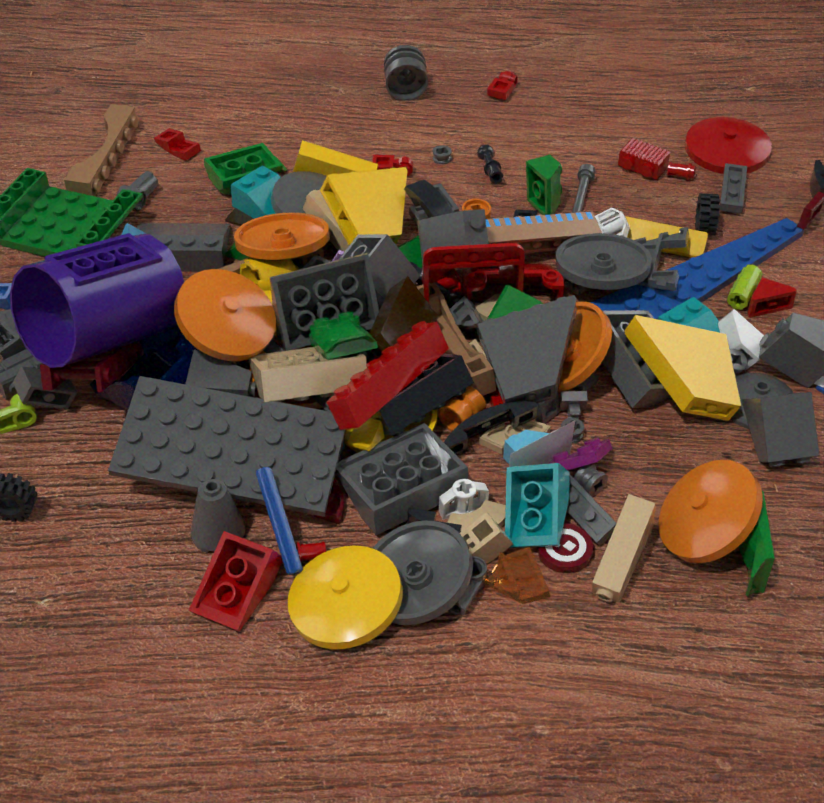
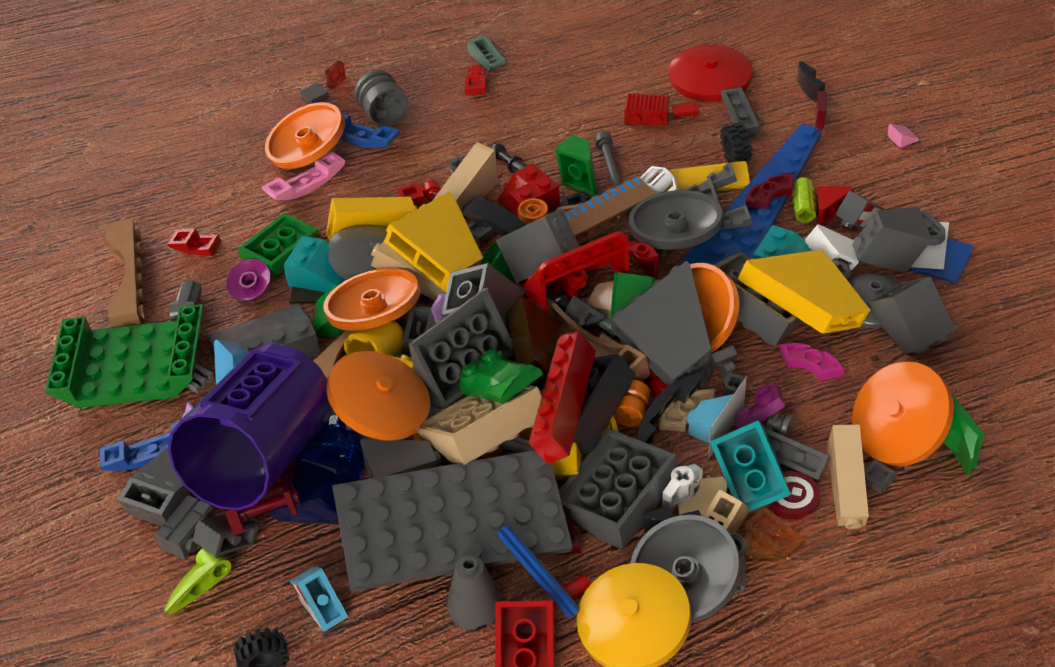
camera: 20 degrees left, 0 degrees up
(88, 473) = (319, 598): none -> medium azure slope
(199, 189) = (244, 274): none -> magenta dish
(302, 125) = (308, 181): none -> bright pink slope
(321, 84) = (305, 135): none -> orange dish
(355, 54) = (314, 94): none -> dark grey tile
(361, 88) = (367, 136): none -> blue slope
(381, 43) = (335, 75): none -> clear red tile
(444, 164) = (473, 176): none -> tan slope
(494, 189) = (529, 184): none -> red slope
(531, 63) = (484, 43): none -> sand green slope
(658, 562) = (879, 476): none -> dark grey tile
(665, 436) = (820, 363): none -> dark pink tile
(722, 265) = (776, 186): none -> dark red tile
(786, 305) = (856, 210): none -> dark grey slope

